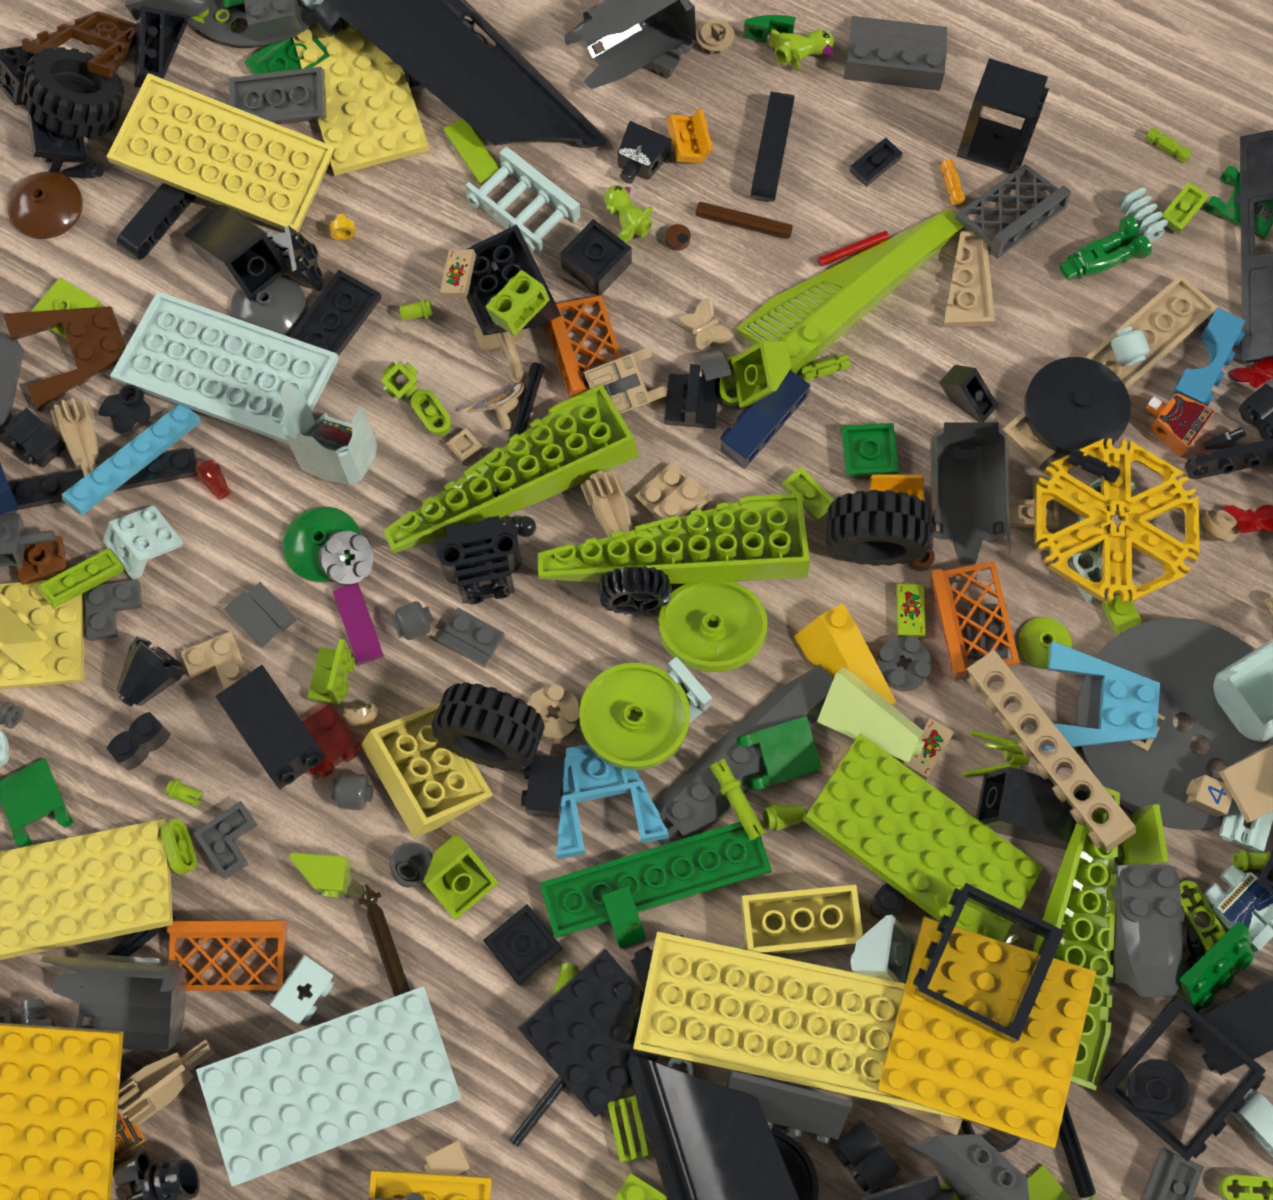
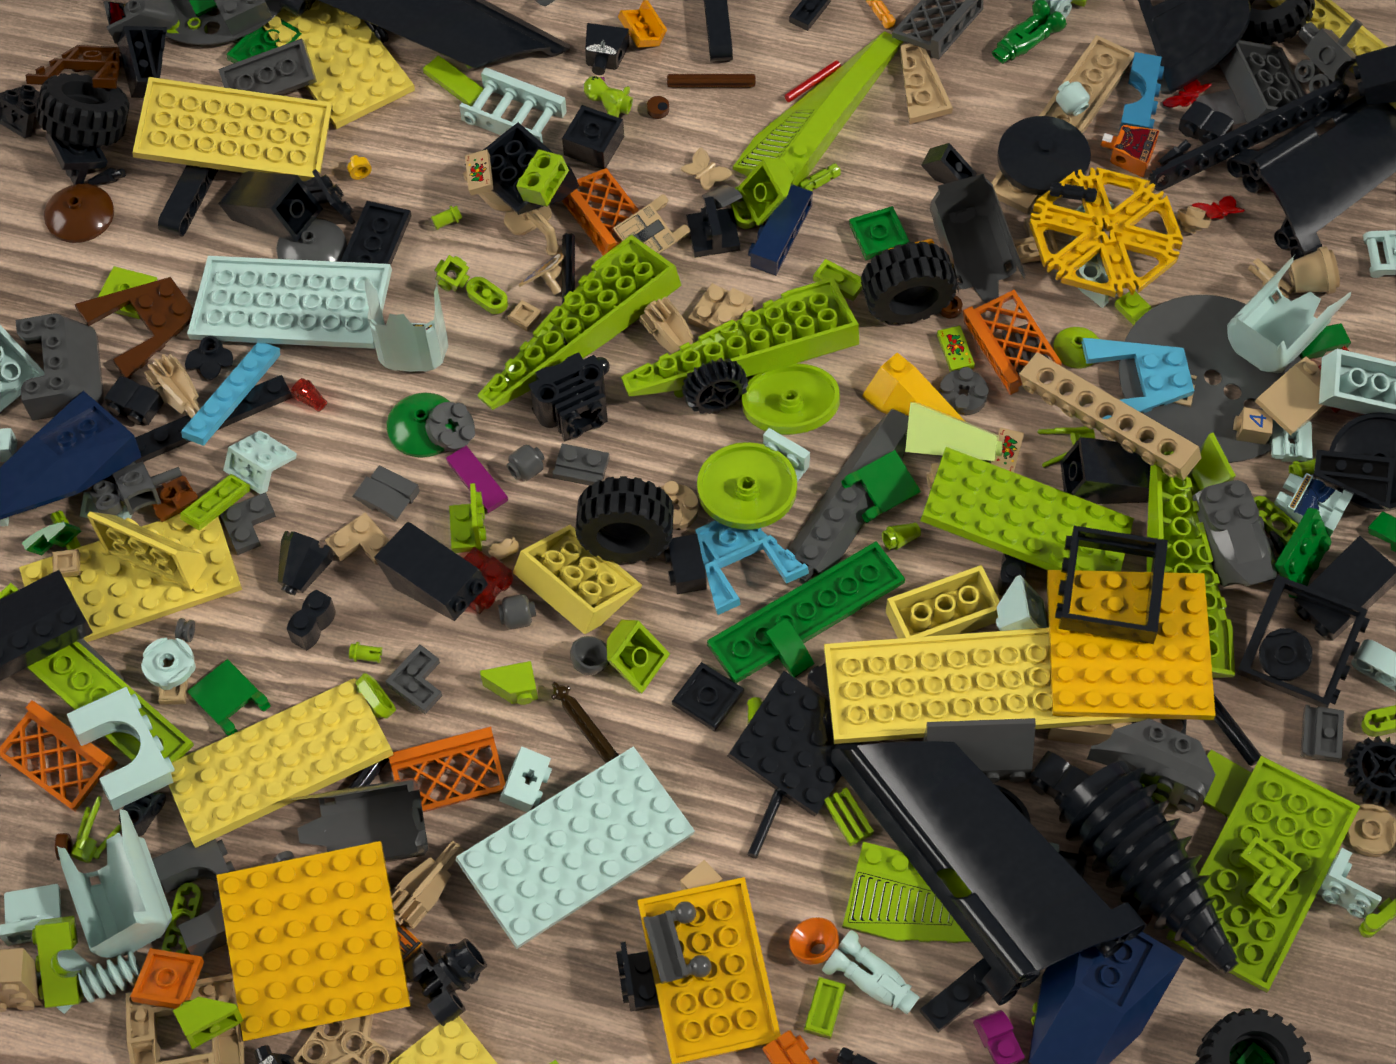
camera: 15 degrees left, 10 degrees down
(737, 799) = (857, 527): lime pin -> none

